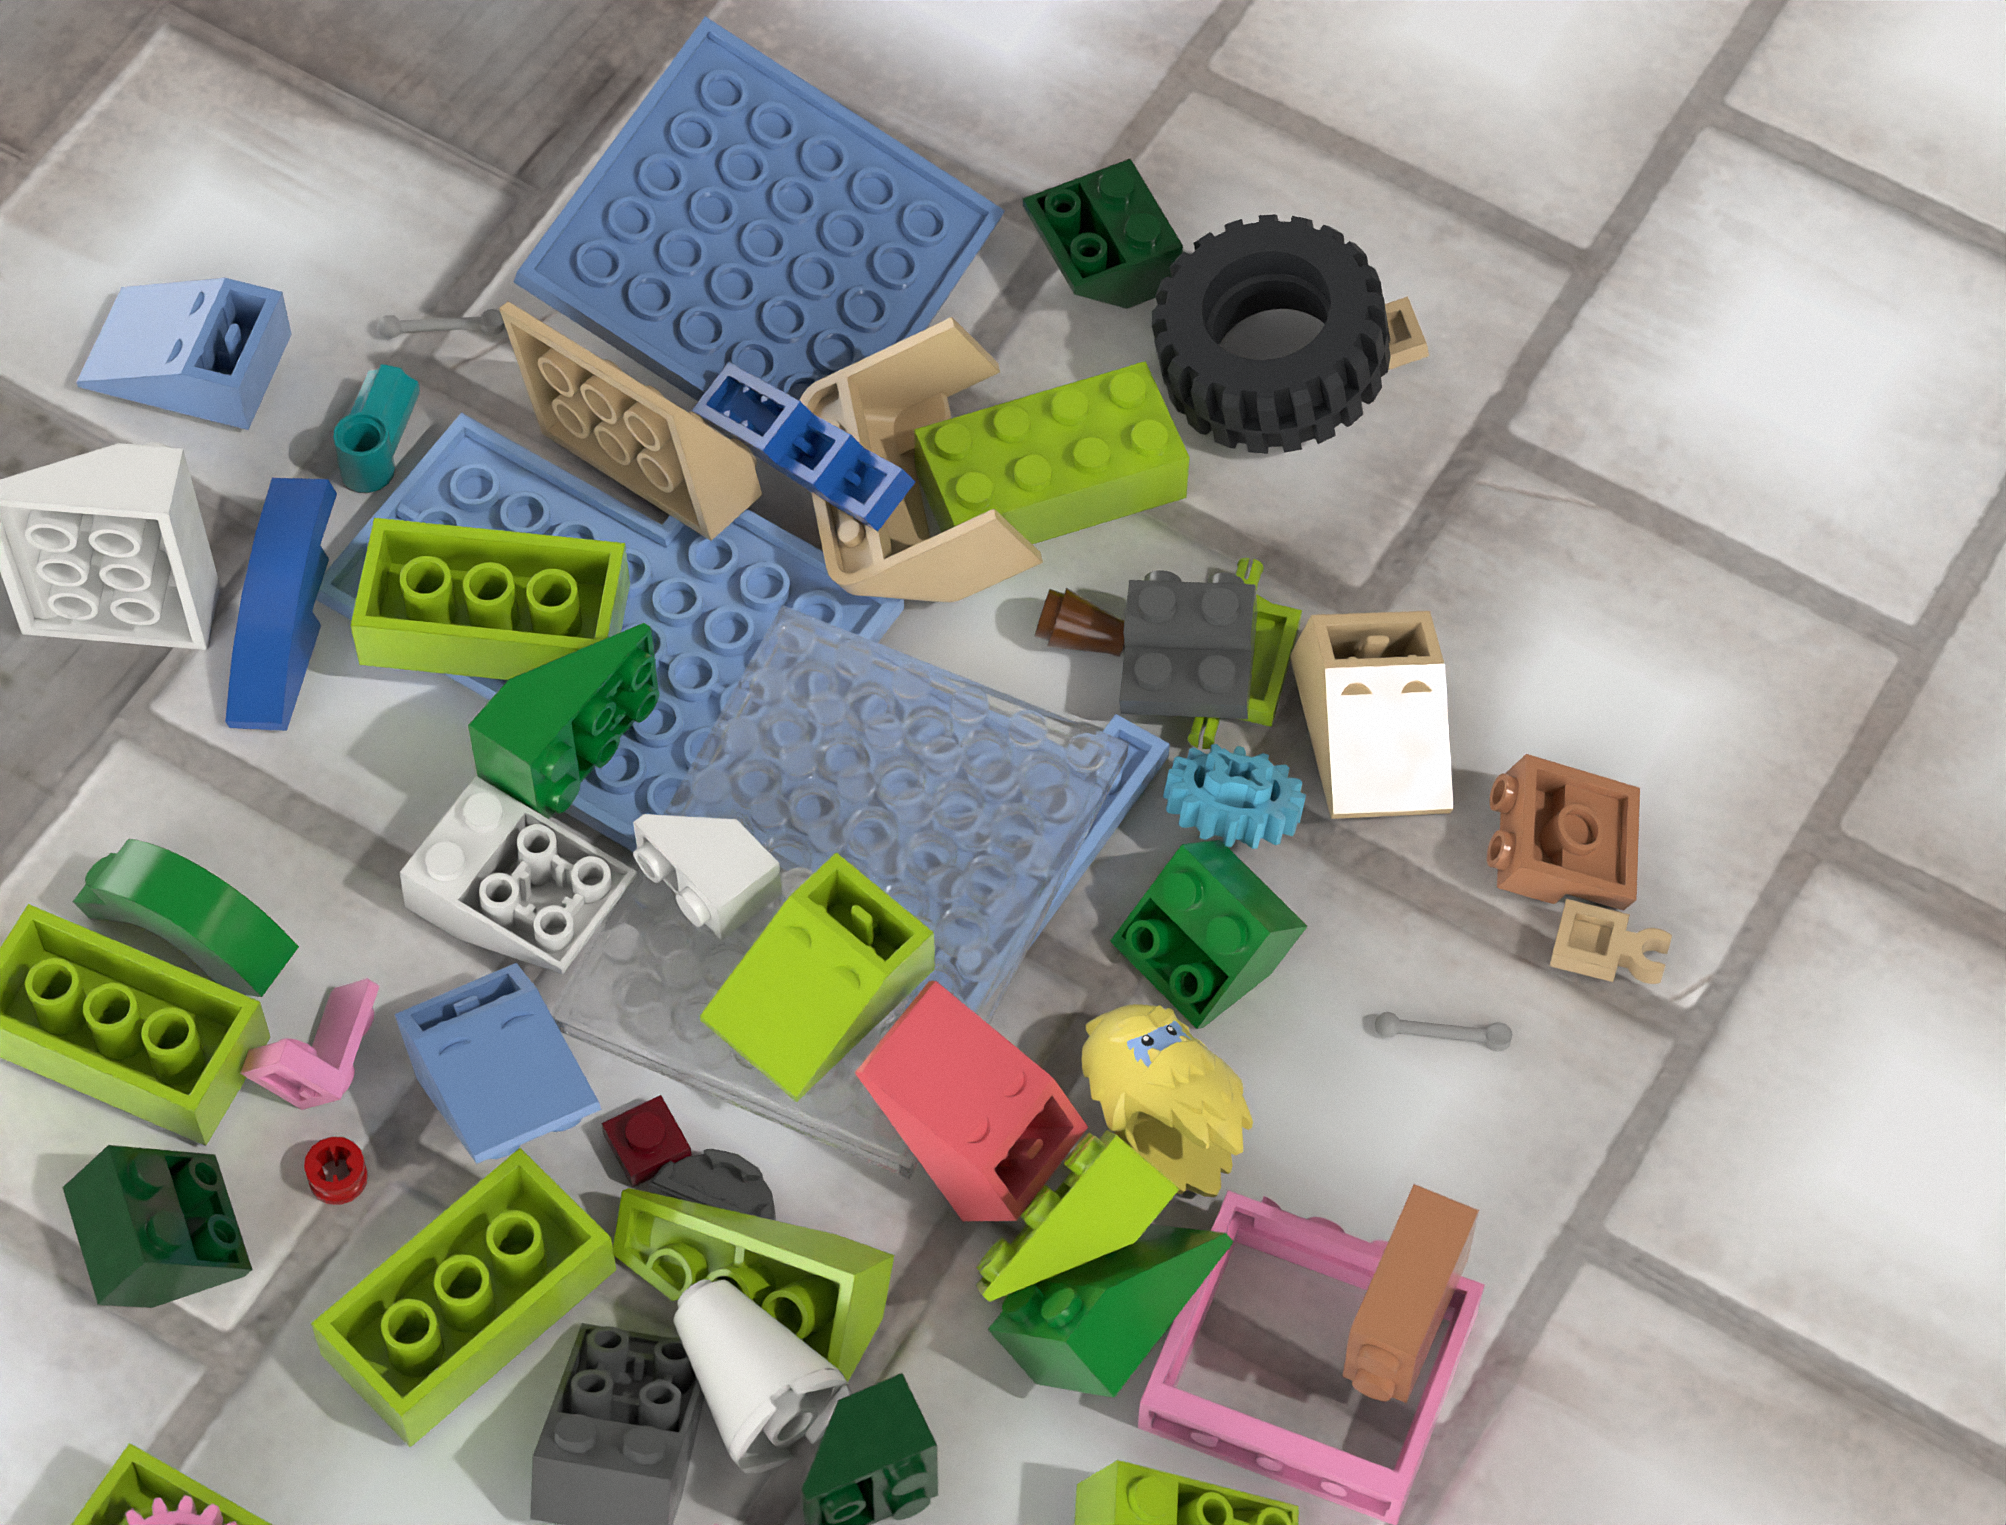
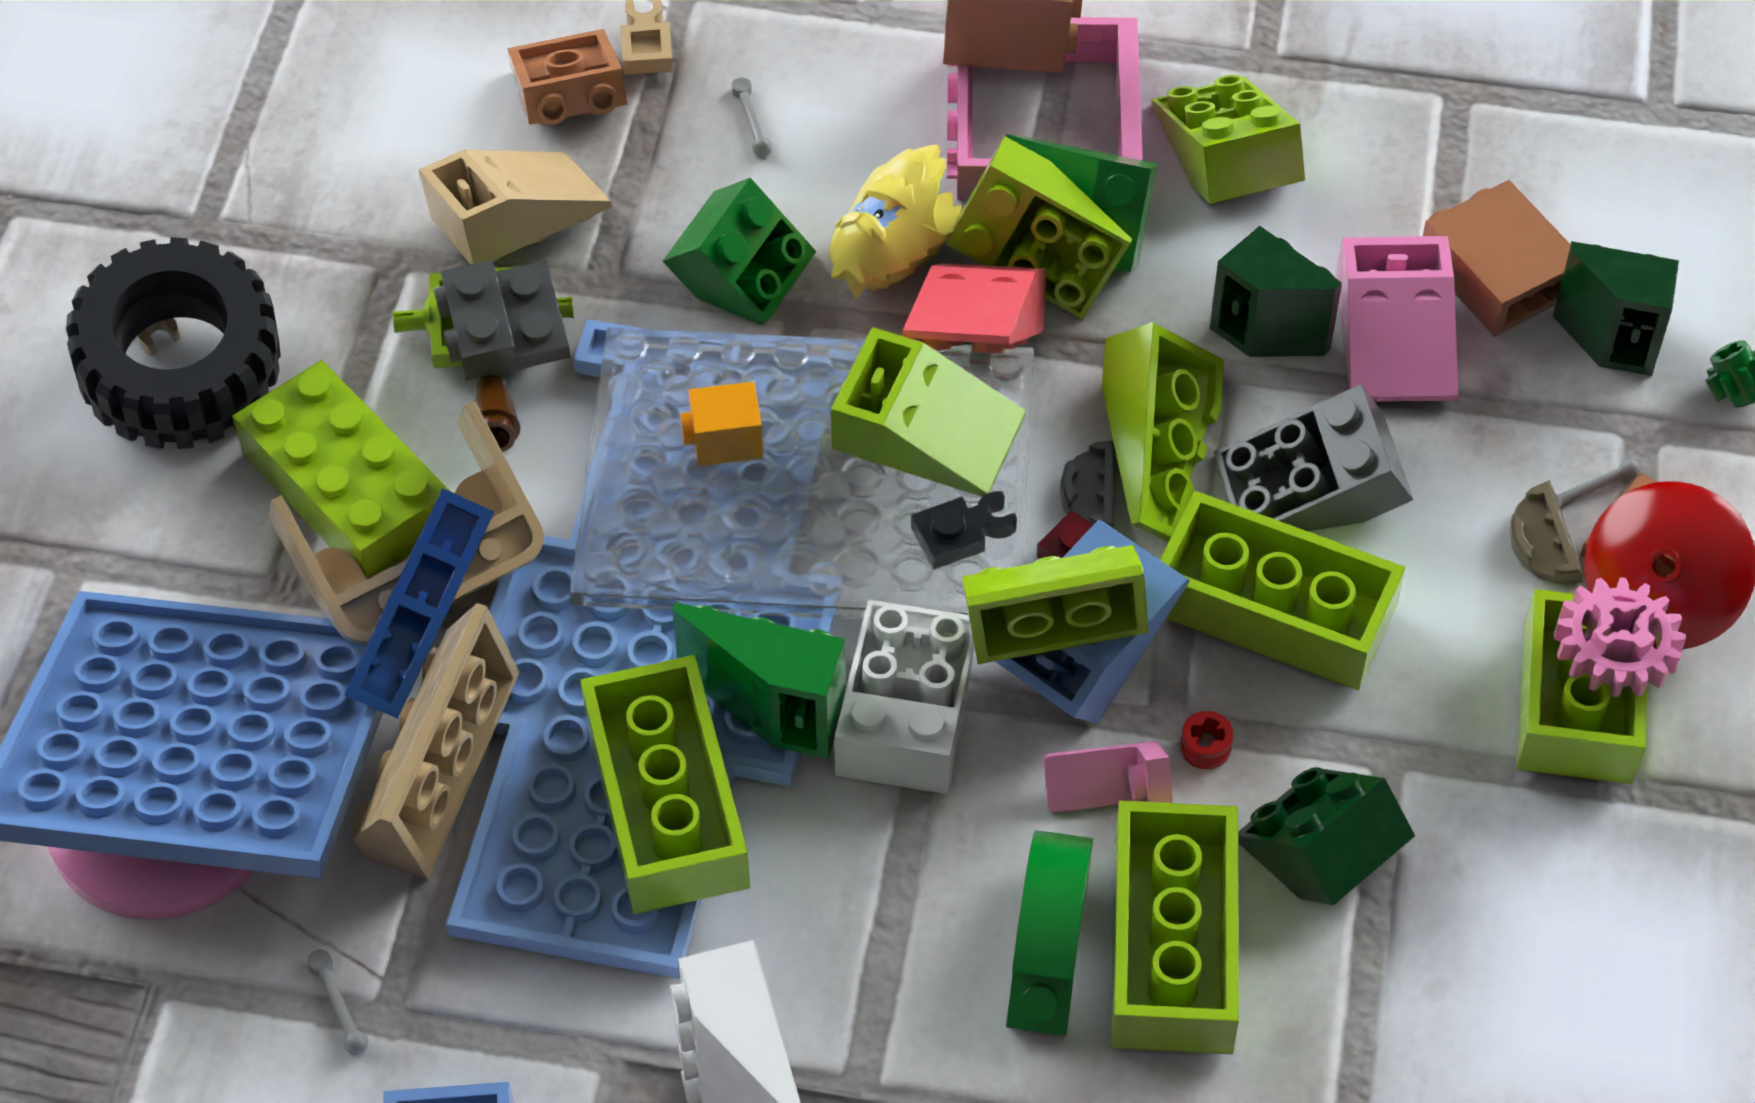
camera: 110 degrees left, 5 degrees down
(277, 604) = (640, 984): blue slope -> none
(374, 428) = (480, 996): teal piece -> none
(490, 987) = (1056, 603): none -> lime slope
(672, 975) = (958, 532): none -> black plate
(711, 866) = (859, 521): white slope -> none
(755, 1375) = (1244, 382): white cone -> none
(905, 784) = (723, 424): none -> light orange brick
(1107, 235) = (87, 495): dark green slope -> none
(1234, 796) = (620, 263): medium azure gear -> none

